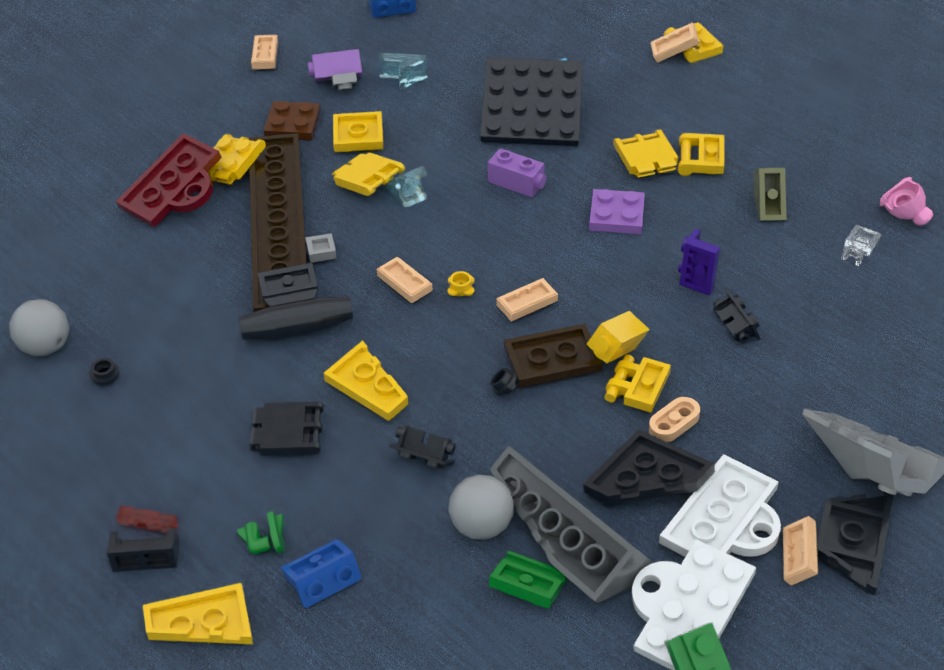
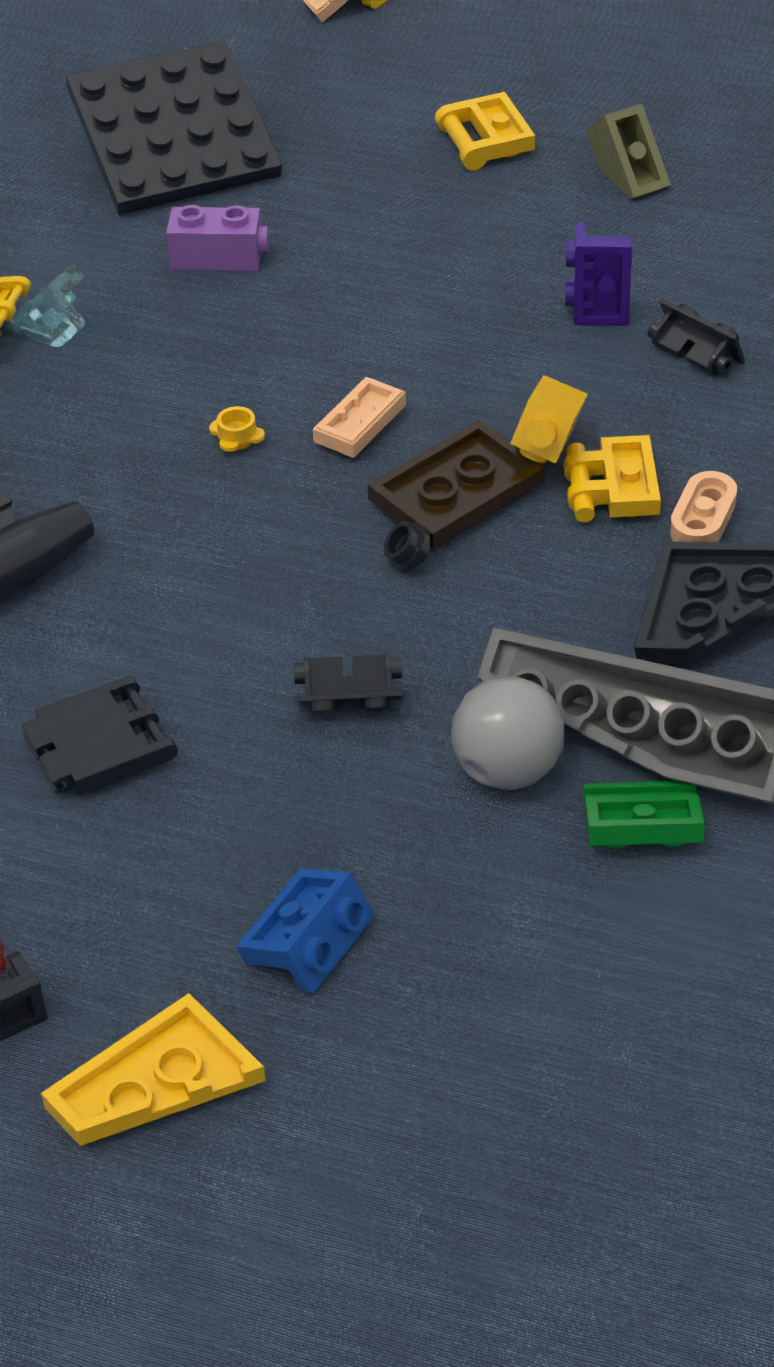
camera: 25 degrees left, 0 degrees up
(255, 543) = (147, 921): green piece -> none
(365, 381) = (181, 623): yellow wing -> none
(404, 279) = (139, 451): light nougat plate -> none
(617, 211) = (410, 249): medium lavender plate -> none
(646, 155) = (402, 156): yellow plate -> none

